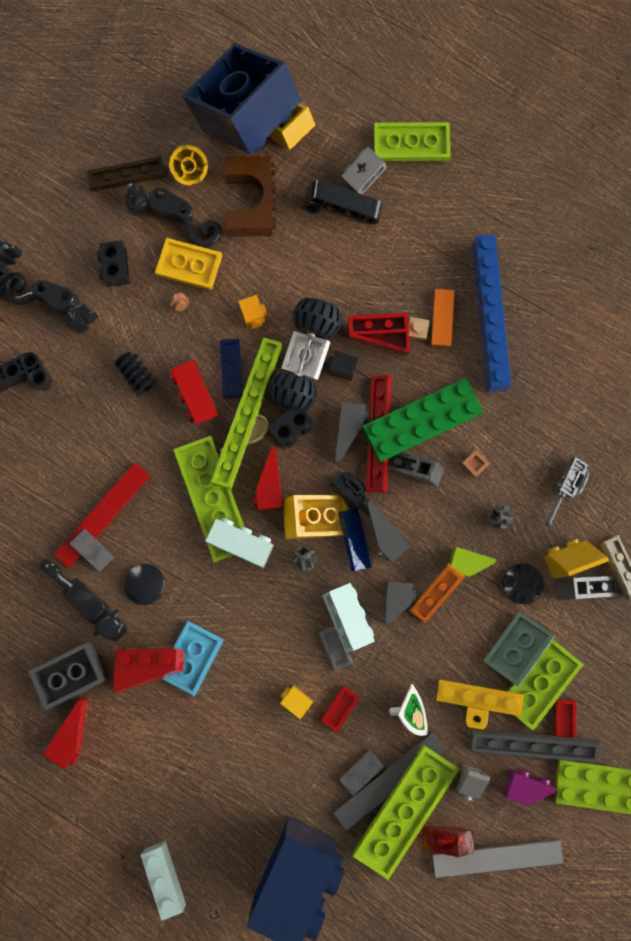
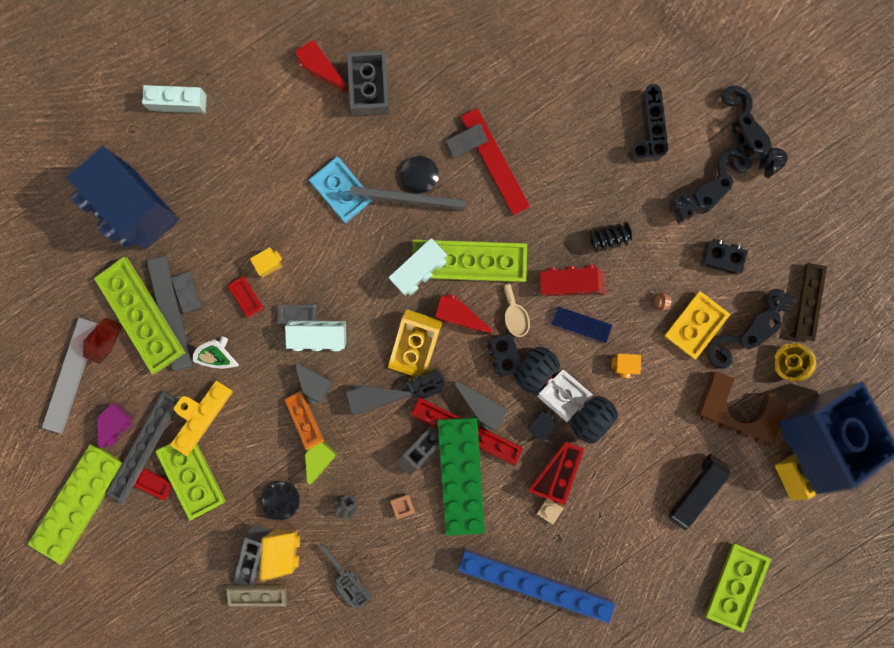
camera: 115 degrees right, 5 degrees up
(87, 603) = (423, 120): black animal -> none
(143, 666) = (350, 147): red wedge -> none
(174, 585) = (407, 198): none -> dark grey tile
(246, 414) = (533, 321): lime plate -> none
(304, 558) = (382, 318): dark grey gear -> none
(354, 540) = (380, 369): clear blue tile -> none
(374, 168) = (724, 537): light grey brick -> none
(442, 318) = (550, 538): orange tile -> none
(471, 782) = (137, 380): light grey slope -> none
(519, 649) = (226, 470): sand green plate -> none

